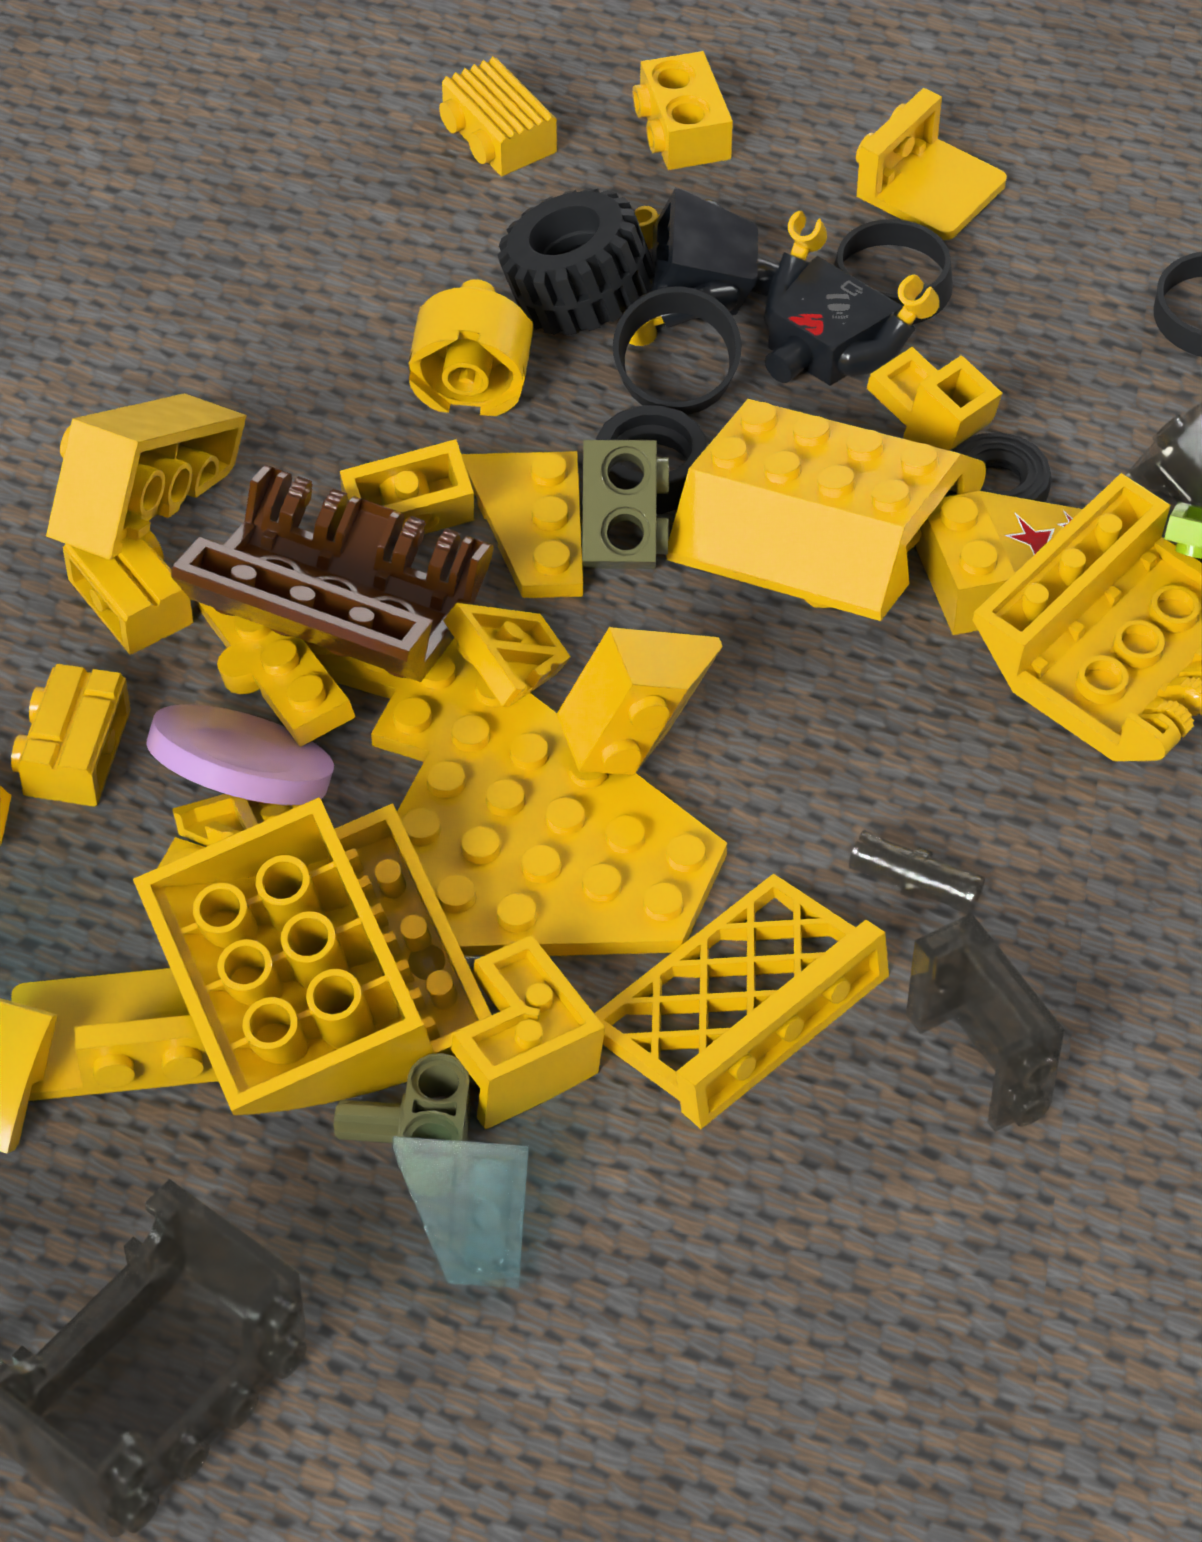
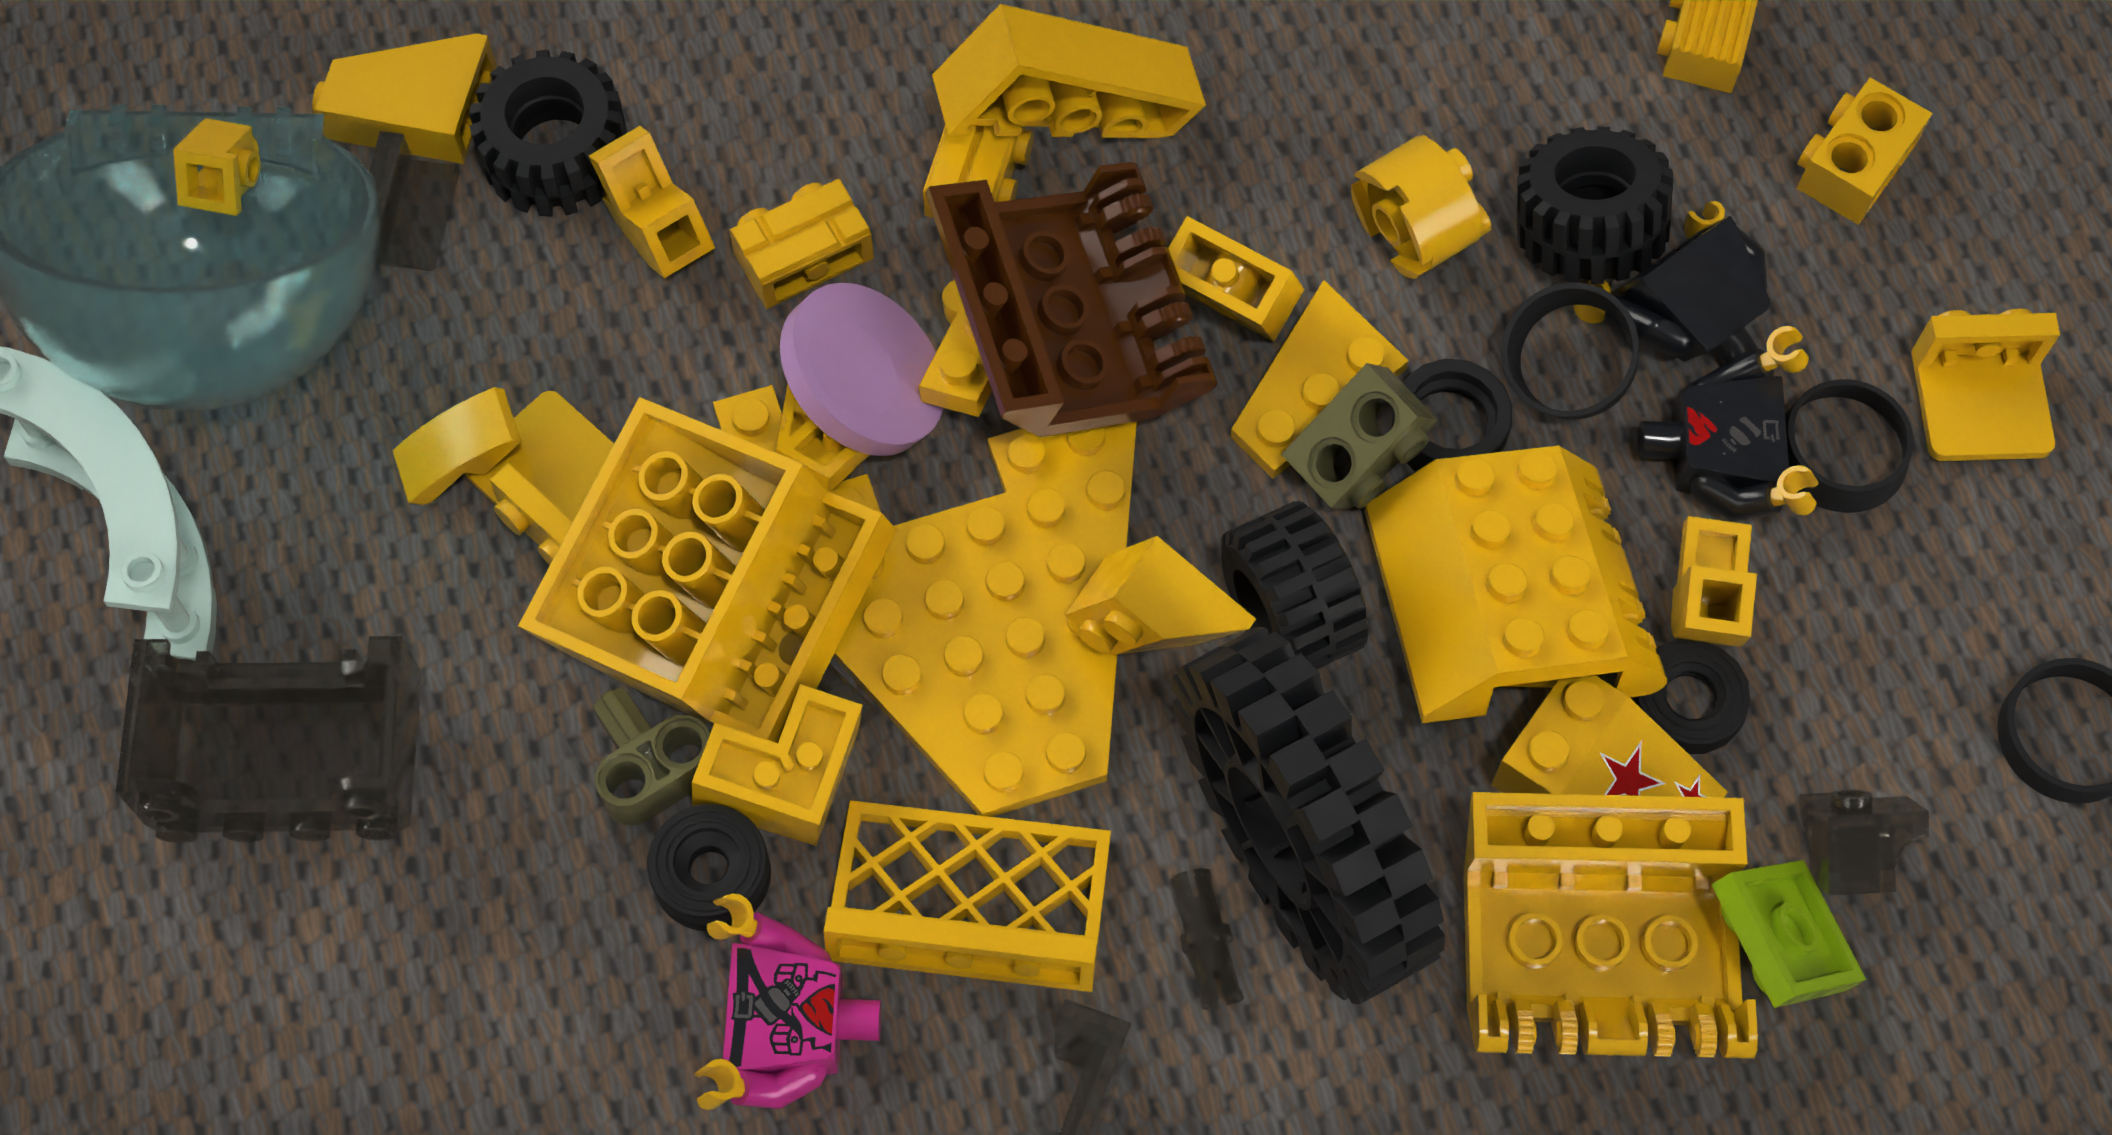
camera: 50 degrees right, 15 degrees up
(468, 1205) = (592, 851): clear light blue wing -> none
(508, 648) = (1140, 472): yellow wing -> none
(563, 1112) = (701, 831): none -> black tyre
(715, 592) = (1297, 582): none -> black tyre
(725, 1169) = (780, 1013): none -> dark pink torso
(874, 616) = (1309, 814): none -> black tyre

